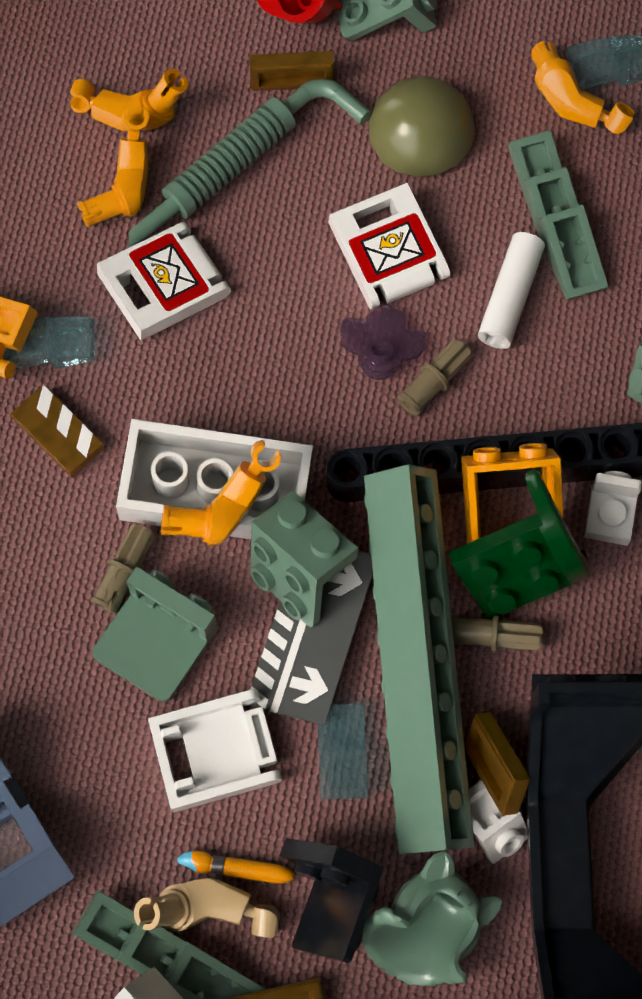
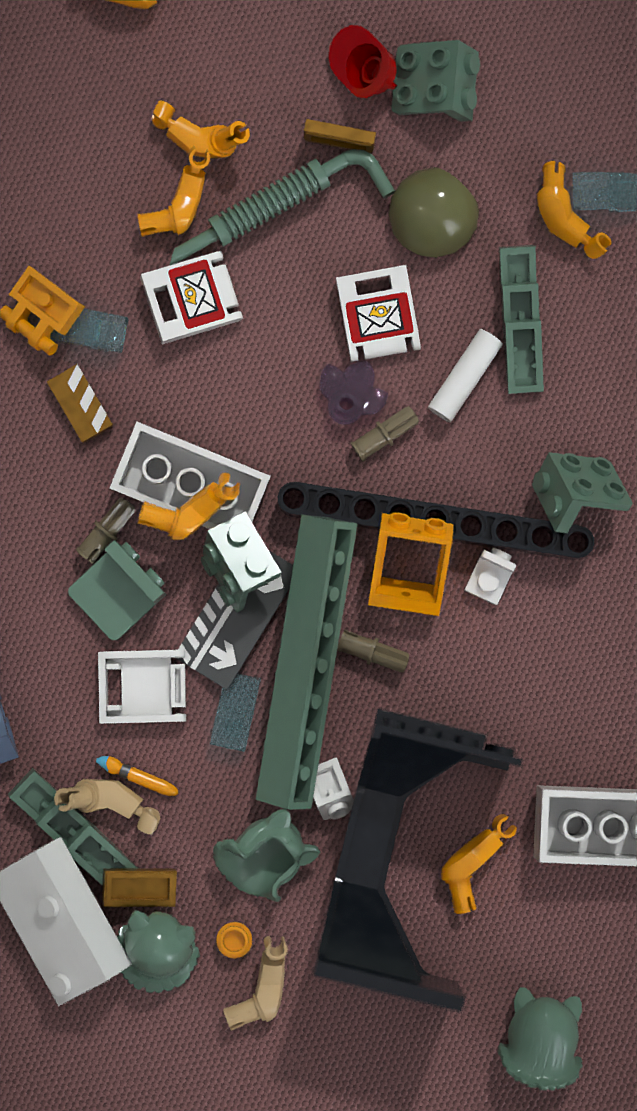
camera: 15 degrees right, 15 degrees up
(338, 899) = (201, 822): black bracket -> none
(496, 764) = (343, 753): pearl gold tile -> none
(523, 558) = (406, 607): dark green piece -> none

